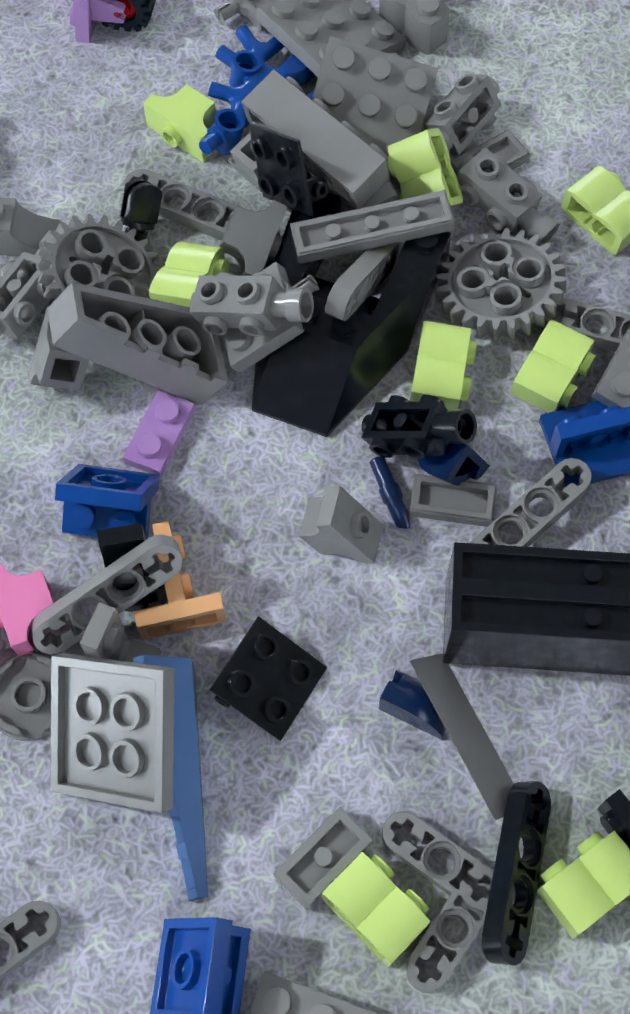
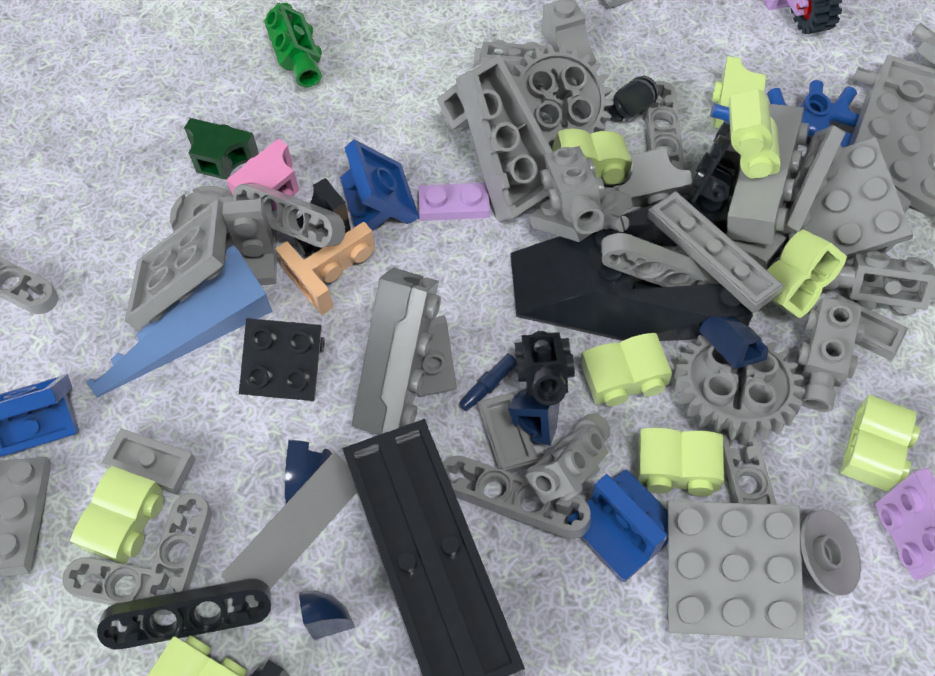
camera: 65 degrees right, 5 degrees down
(301, 118) = (754, 134): none -> yellowish green brick
(325, 83) = (811, 179): none -> light grey plate
(351, 546) = (395, 351): none -> piece
(467, 261) = (734, 340): none -> dark blue brick
(523, 450) = (570, 461): none -> light grey brick
(572, 738) = (323, 614): none -> dark blue brick

